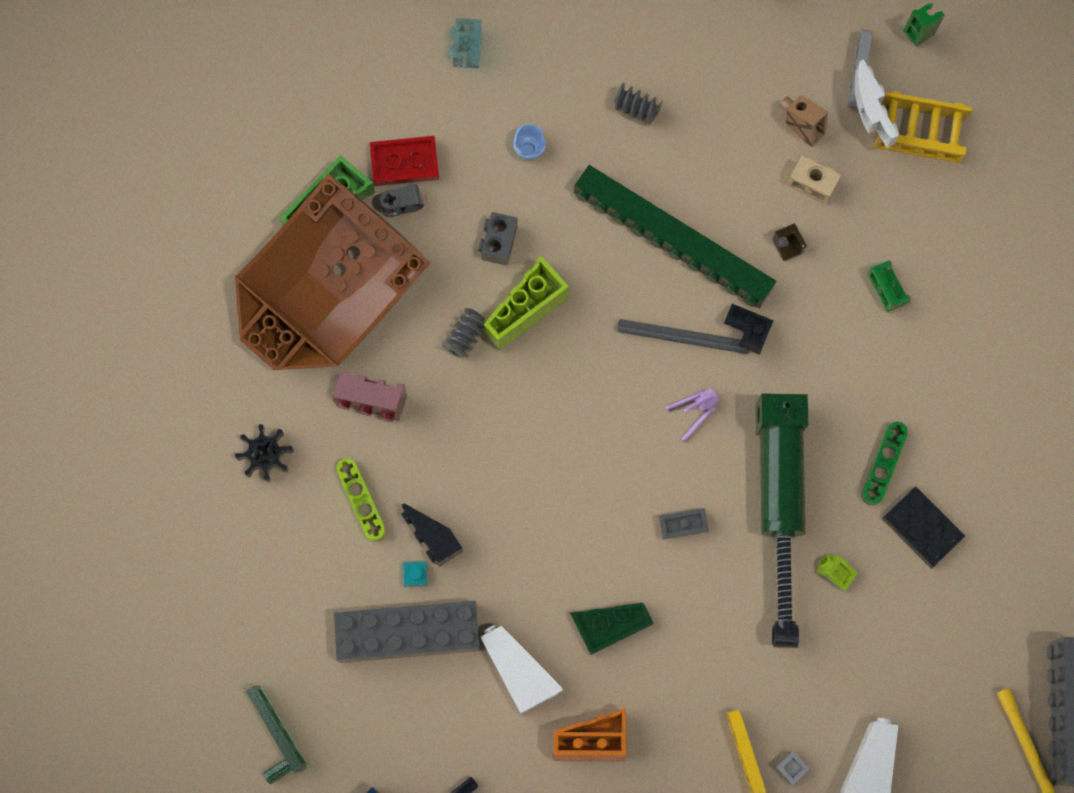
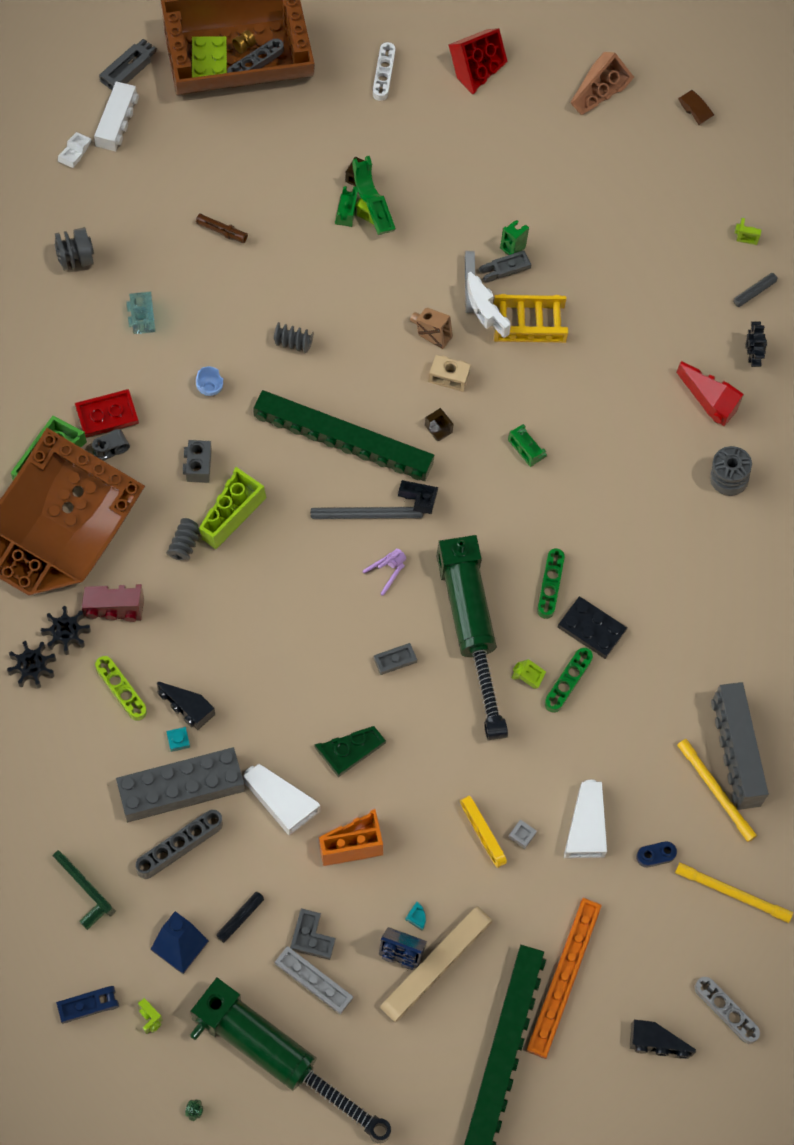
camera: 15 degrees left, 10 degrees down
(304, 426) = (66, 623): none -> black gear
(381, 703) = (175, 853): none -> dark grey beam
(885, 589) = (568, 679): none -> green beam
(906, 55) = (505, 266): none -> dark grey hinge

